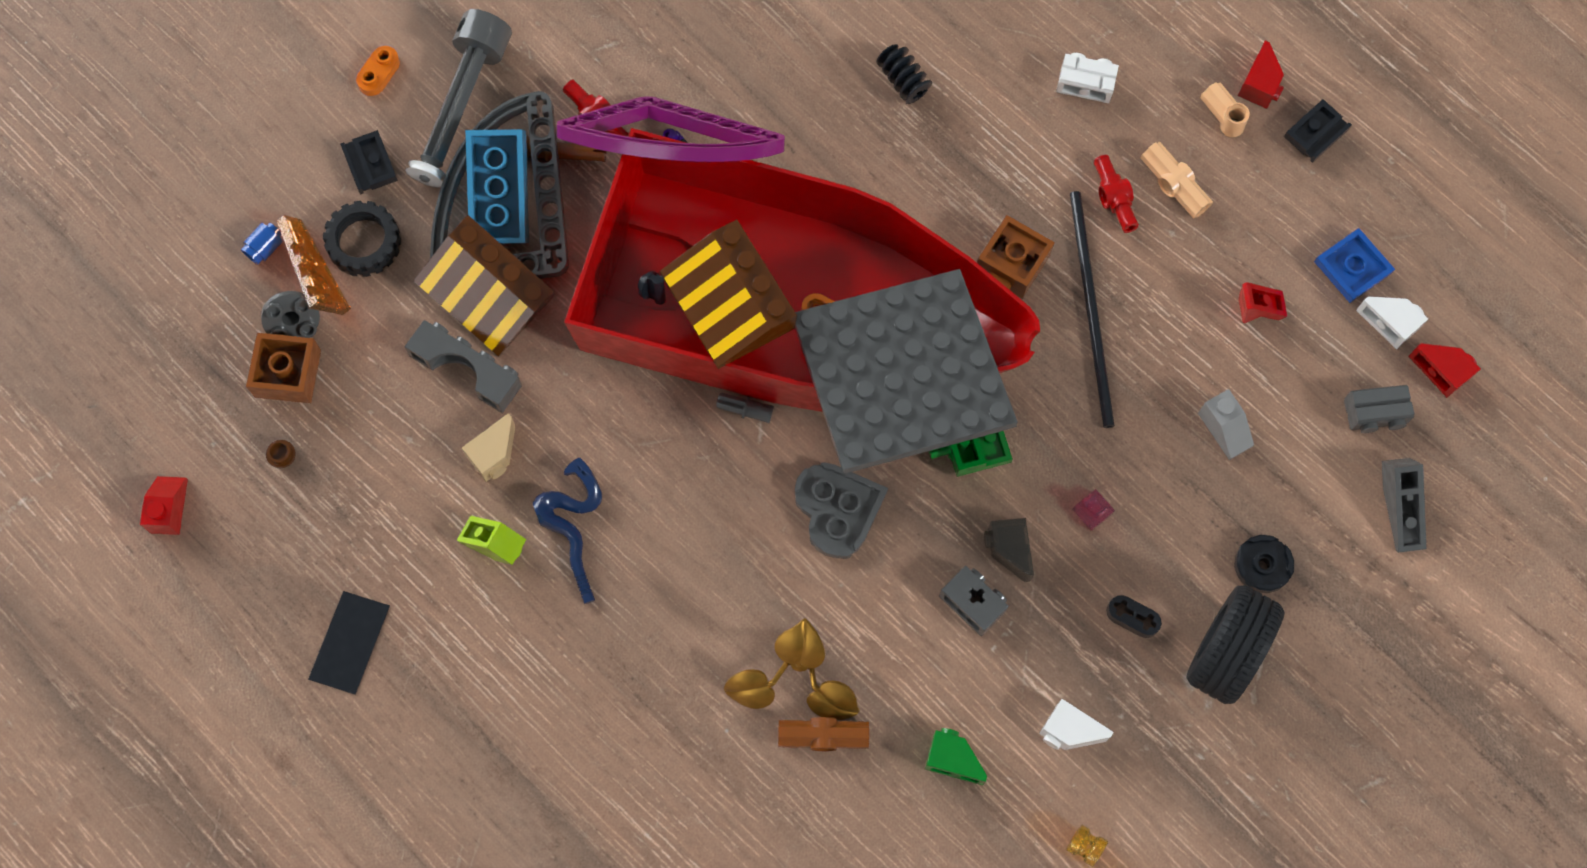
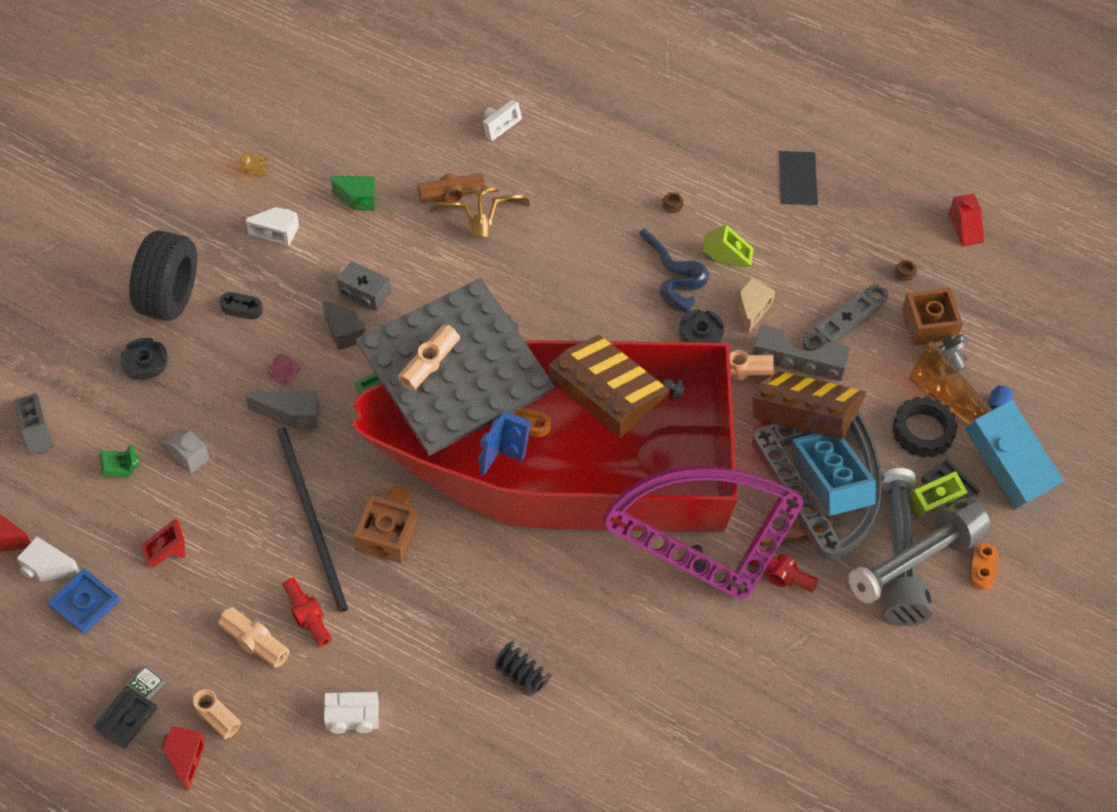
camera: 165 degrees right, 15 degrees down
(284, 162) = (1014, 454): none -> dark azure brick
(367, 409) = (856, 309): none -> dark grey piece
(394, 140) = (936, 494): none -> lime slope
(438, 75) = (957, 527): none -> dark grey piece
(528, 357) = (744, 365): none -> light nougat piece
(534, 636) = (672, 202): none -> reddish brown plate
(567, 418) = (703, 321): none -> black plate
(725, 841) = (500, 120): none -> white tile
(887, 267) = (507, 436): none -> blue bracket
(924, 369) = (421, 367): none -> light nougat piece
(1095, 444) = (289, 408): none -> dark grey slope
(1293, 164) = (146, 683): none -> tile
(1306, 423) = (118, 463): none -> green bracket
(1379, 408) = (56, 487): dark grey brick -> none

